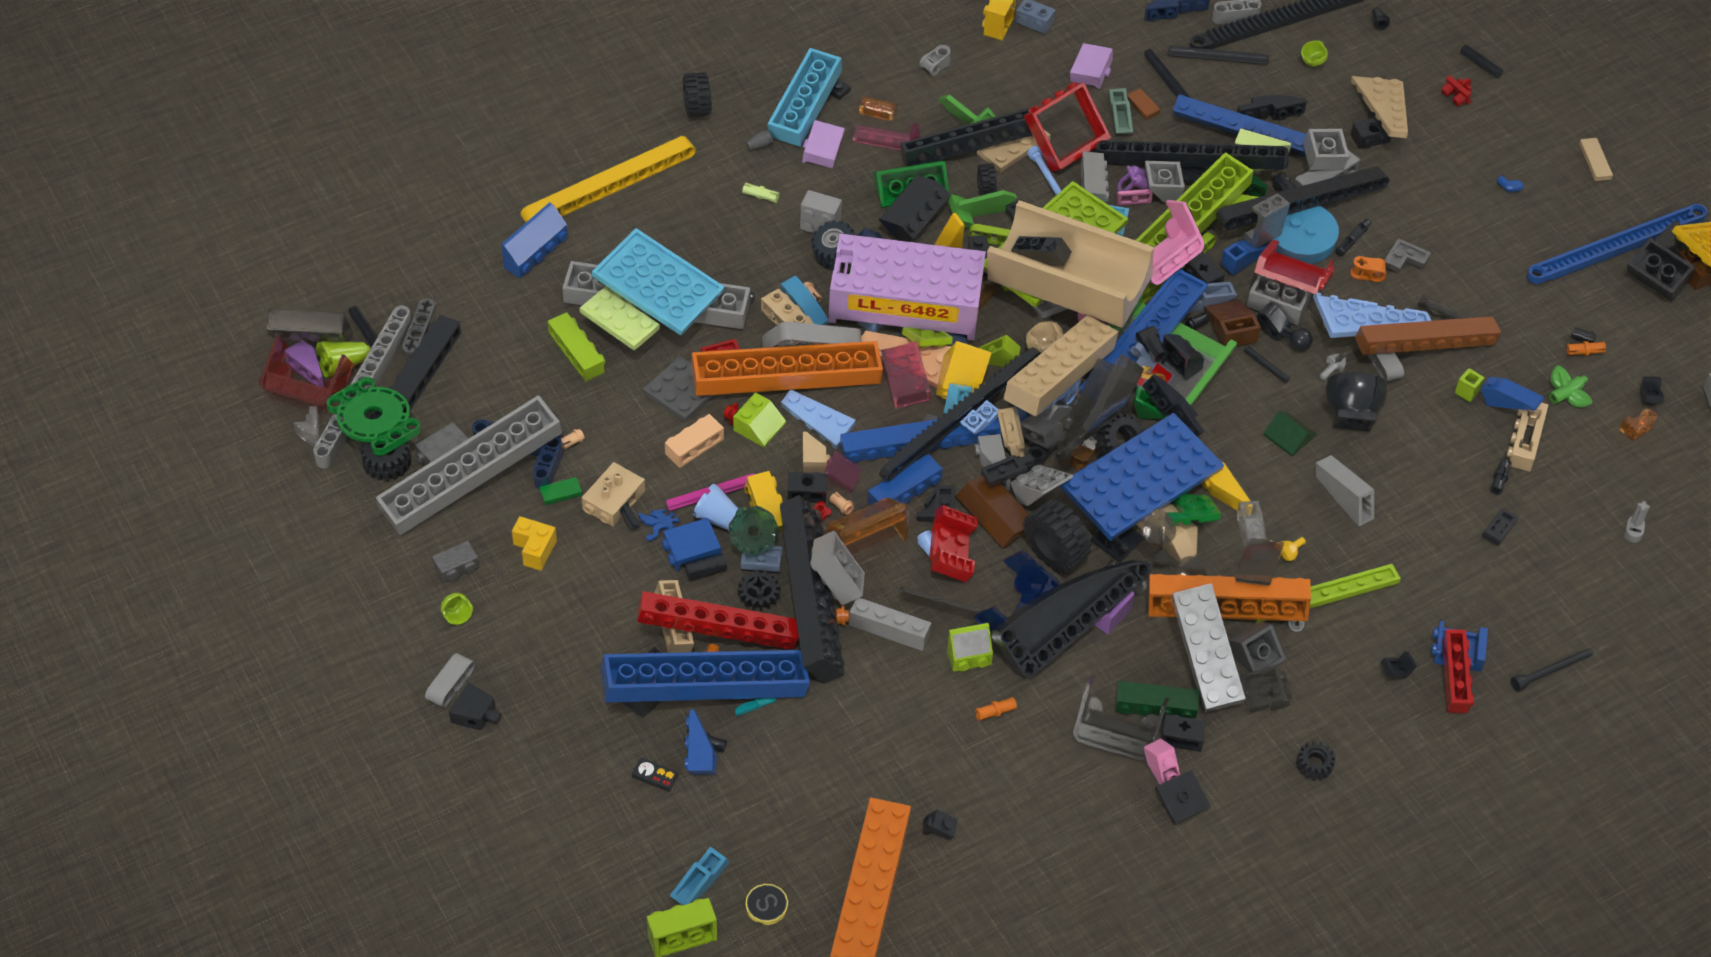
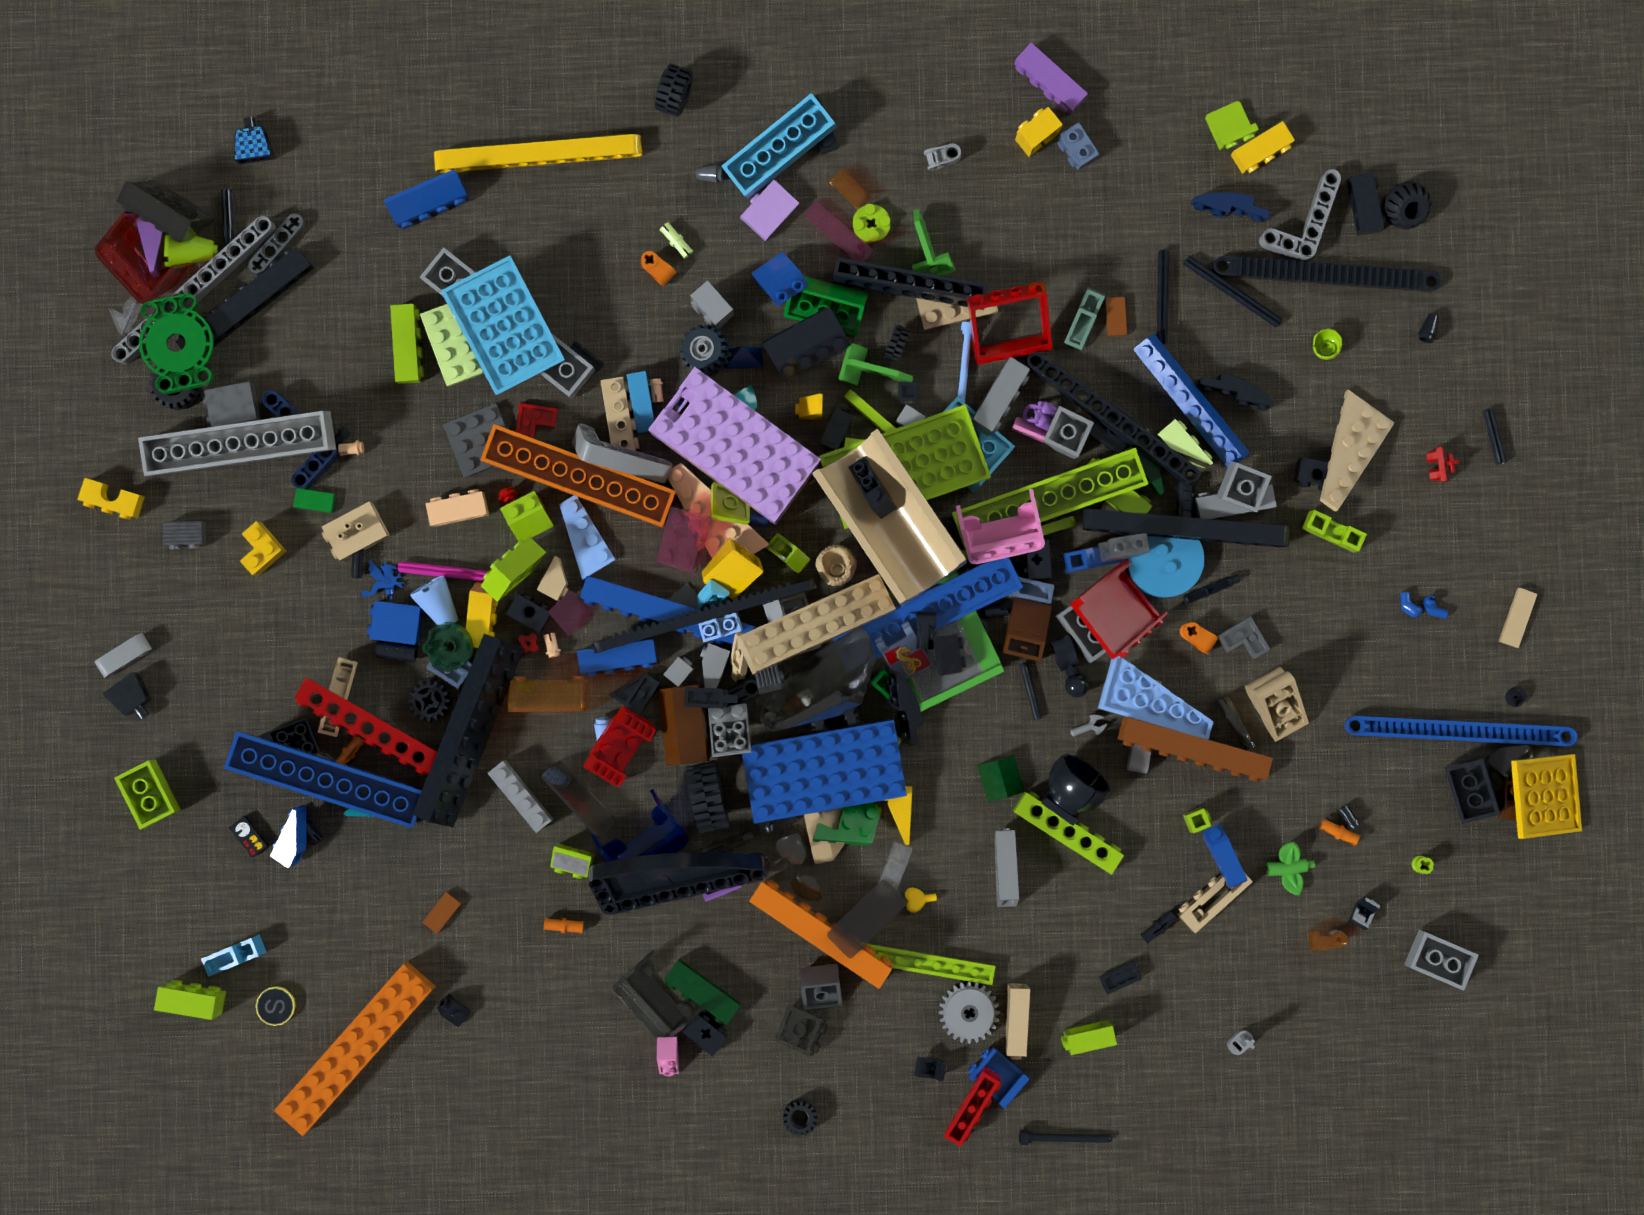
camera: 30 degrees right, 35 degrees up
(359, 268) = (252, 143): none -> torso
(386, 565) = (95, 493): none -> yellow arch
(456, 608) = (160, 586): lime hair -> none
(538, 776) = (147, 794): none -> lime brick
(758, 214) = (660, 270): none -> orange piece
(774, 447) = (512, 568): none -> lime brick
(837, 568) = (494, 731): light grey brick -> none
(842, 615) = (485, 765): orange plate -> none
(866, 169) = (780, 279): none -> blue panel
(876, 752) = (441, 912): none -> dark orange tile
(904, 115) = (872, 234): none -> lime plate
(965, 471) = (679, 671): none -> light grey brick
(1092, 65) = (1095, 241): lavender container -> none
(1182, 797) = (666, 1092): black plate -> none
(1208, 648) = (766, 978): light grey brick -> none
(1375, 443) = (1107, 863): none -> lime brick
(1397, 608) = (973, 1025): none -> light grey gear
(1428, 160) = (1338, 534): none -> lime arch
(1440, 590) = (1017, 1020): none -> tan slope
(1466, 276) = (1278, 703): none -> tan brick
(1511, 573) = (1089, 1037): none -> lime window
(1523, 177) = (1432, 609): none -> blue arm
(1638, 206) = (1515, 697): none -> black tile
(1673, 337) = (1428, 864): none -> lime bush

